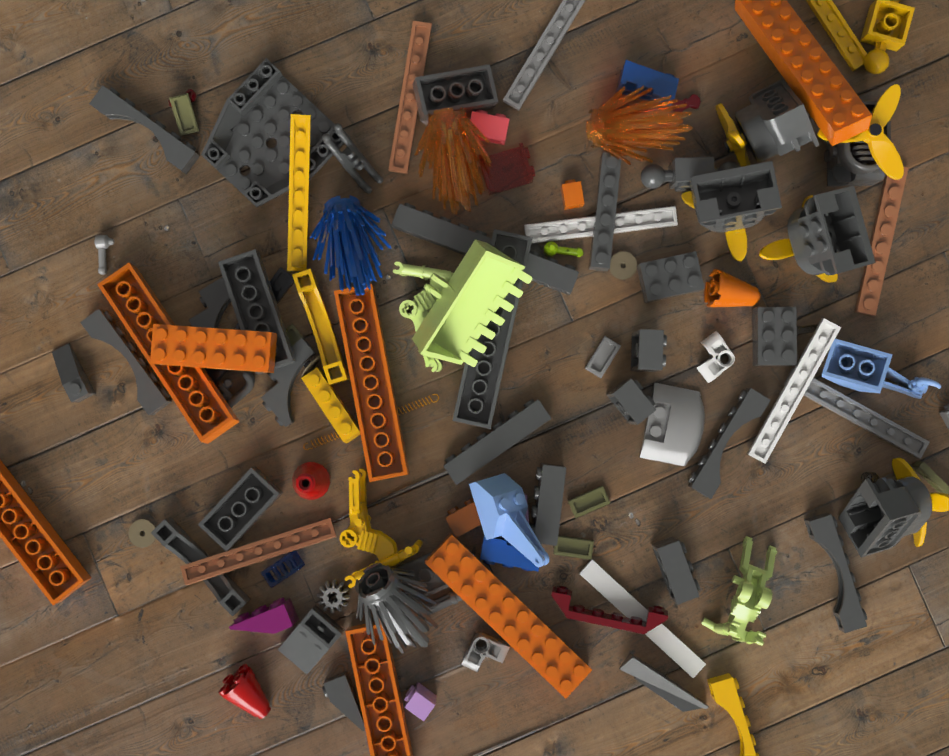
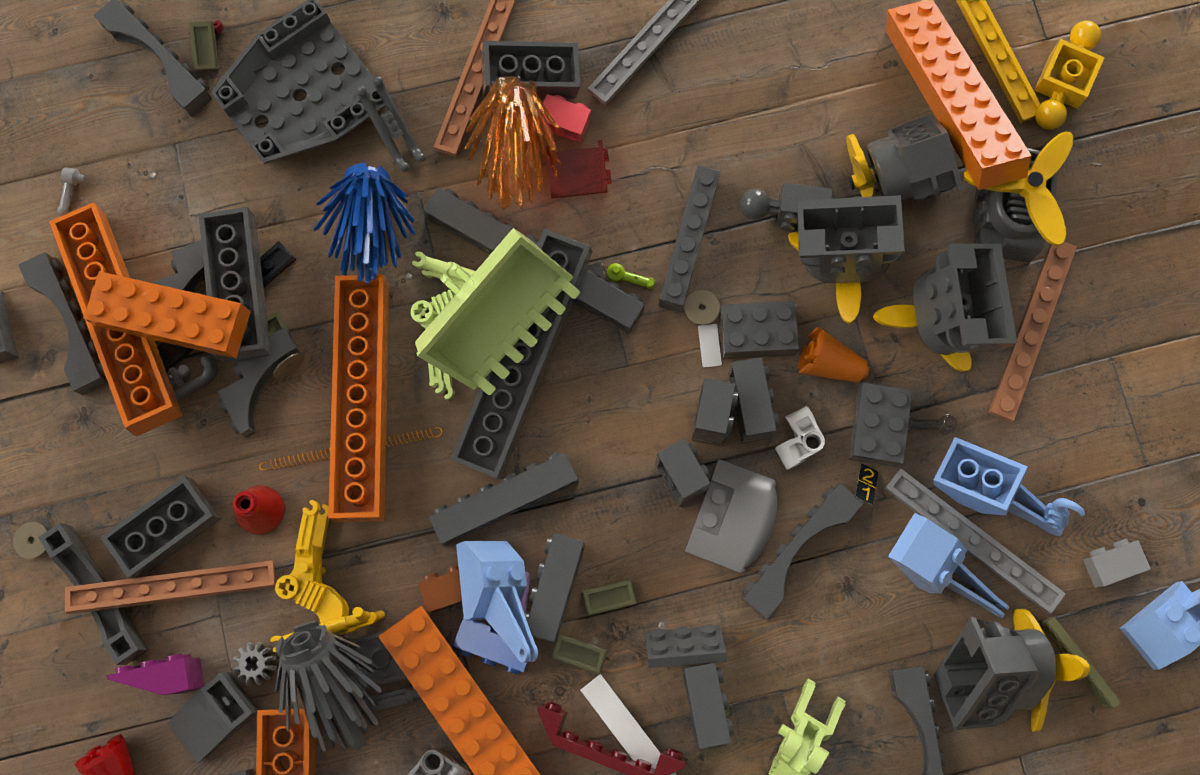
camera: 10 degrees right, 10 degrees down
(293, 562) = (213, 610): clear blue slope -> none
(298, 192) = (317, 153): yellow plate -> none
(322, 328) = (311, 304): yellow arch -> none
(331, 405) = (303, 416): yellow brick -> none
(572, 194) = (652, 212): orange brick -> none
(585, 226) = (660, 253): white tile -> none
(602, 357) = (658, 416): light grey tile -> none
(625, 128) = (727, 137): clear orange plant -> none
(633, 294) = (709, 345): none -> white sticker
(635, 76) = (764, 96): blue wedge -> none
(653, 530) = (685, 646): none -> dark grey plate
(679, 341) = (754, 400): none -> dark grey brick
(692, 102) = (802, 130): dark red piece -> none
(770, 383) = (866, 484): none -> black sticker
(794, 390) = (895, 496): white plate -> none
(828, 434) = (932, 556): none -> light blue slope

